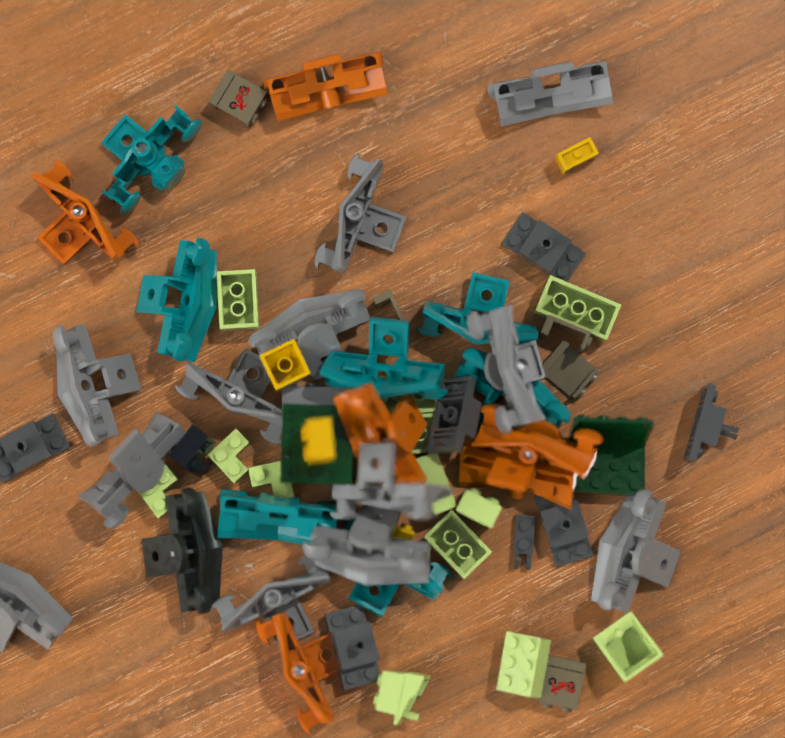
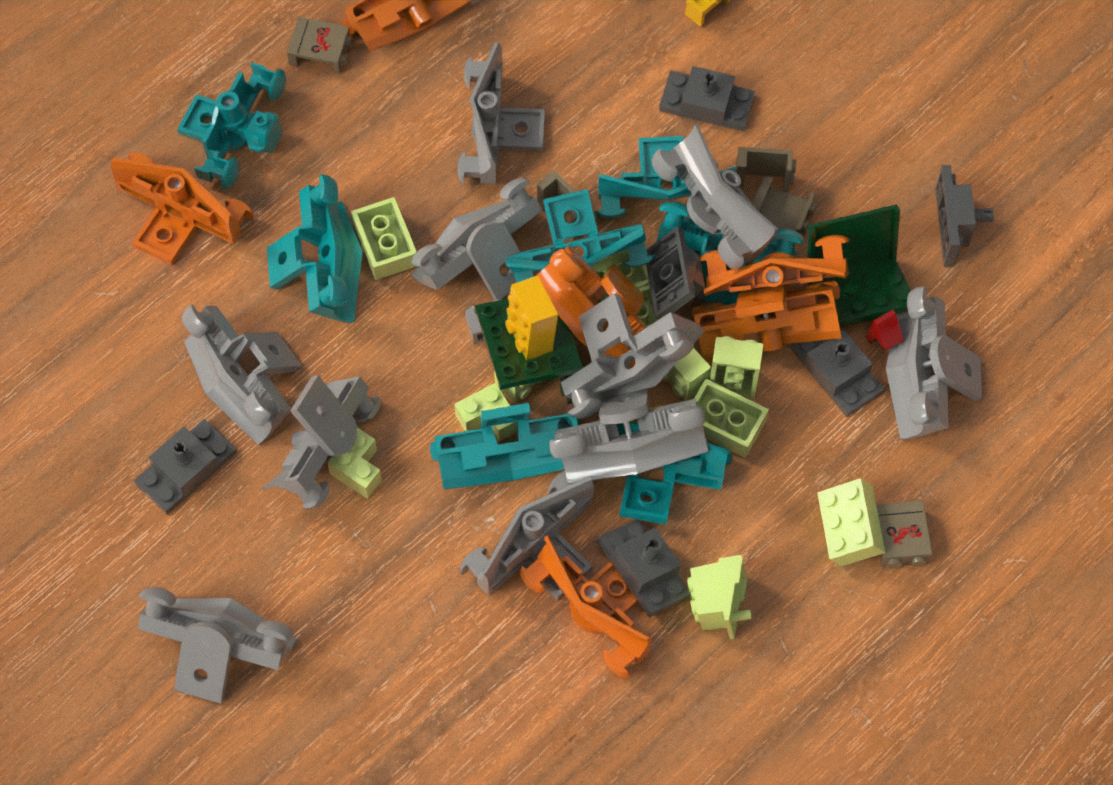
camera: 20 degrees left, 20 degrees down
(189, 551) = (411, 510): pearl dark grey piece -> none
(192, 449) = (382, 404): black brick -> none
(226, 455) = (426, 405): yellowish green brick -> none
(238, 392) = (415, 334): light grey piece -> none
(285, 365) = (462, 280): yellow slope -> none
(523, 539) = (798, 397): dark grey hinge -> none
(578, 307) = (768, 134): yellowish green brick -> none
(610, 511) = (885, 331): none -> red slope
(627, 646) = (962, 464): yellowish green piece -> none

